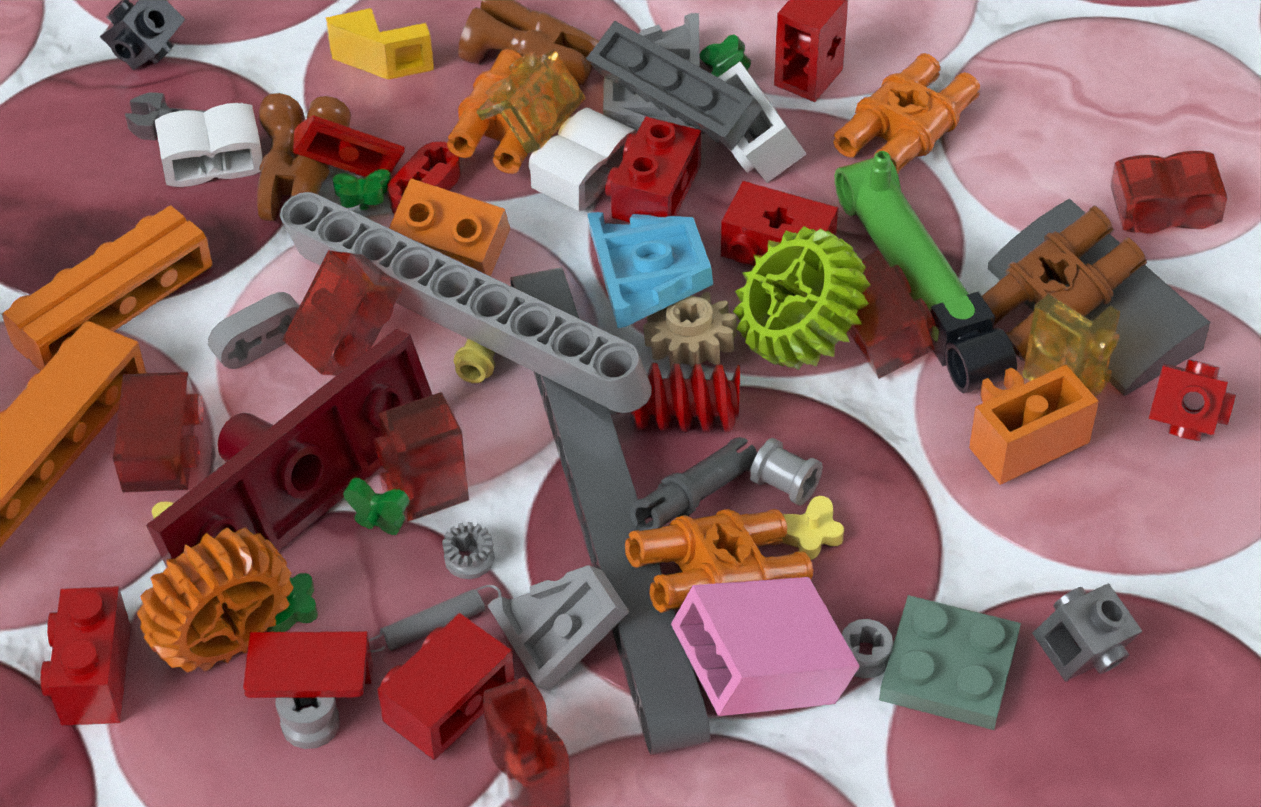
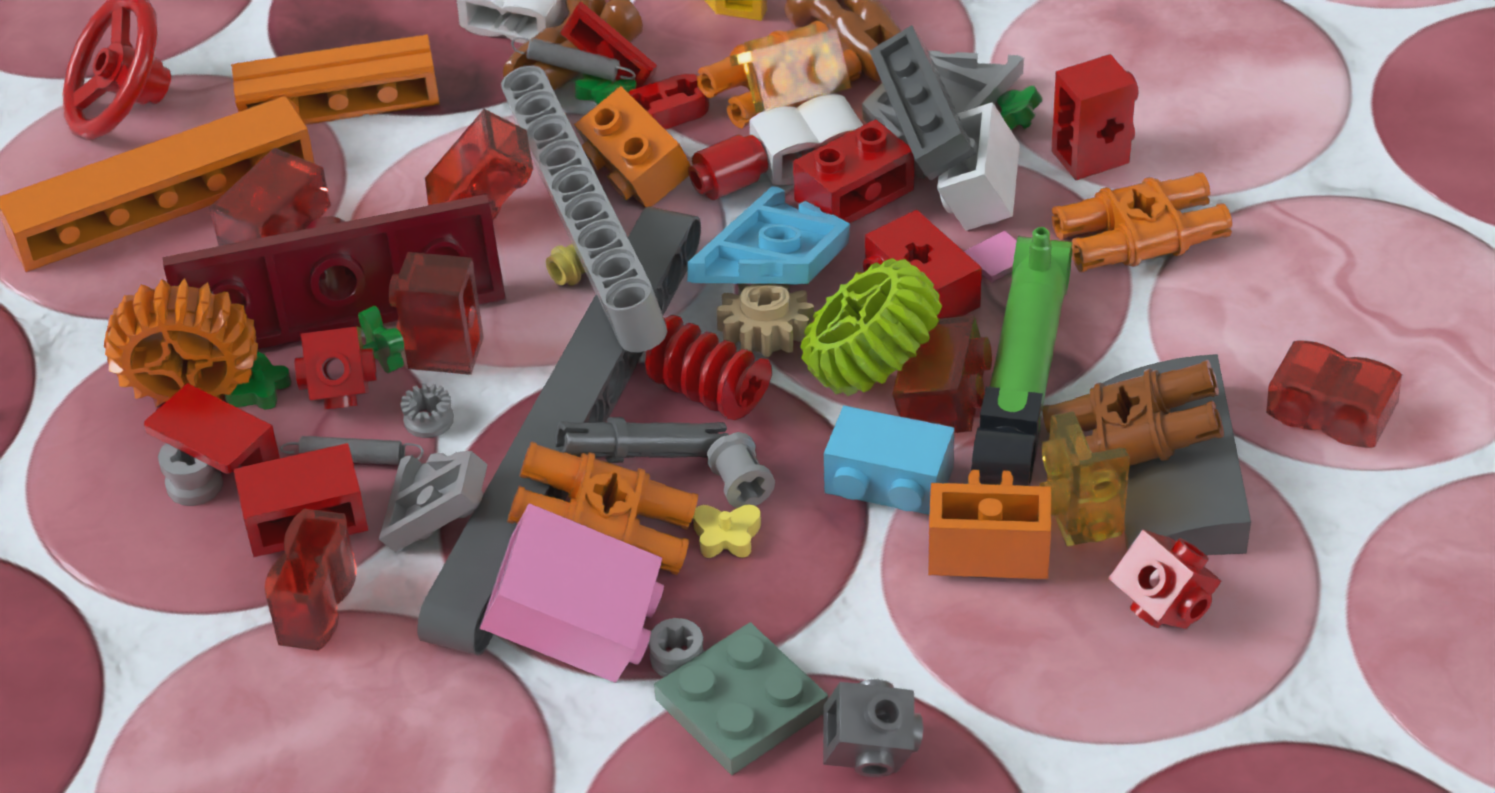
camera: 35 degrees right, 5 degrees down
(87, 656) = (64, 350): red brick -> none
(253, 330) = (413, 159): light grey beam -> none
(326, 172) = (572, 59): none -> light grey piece
(365, 550) = (319, 351): none -> red brick
(538, 211) = (728, 166): none -> red brick
(815, 187) = (994, 255): none -> bright pink piece
(896, 404) = (887, 459): none -> medium azure brick

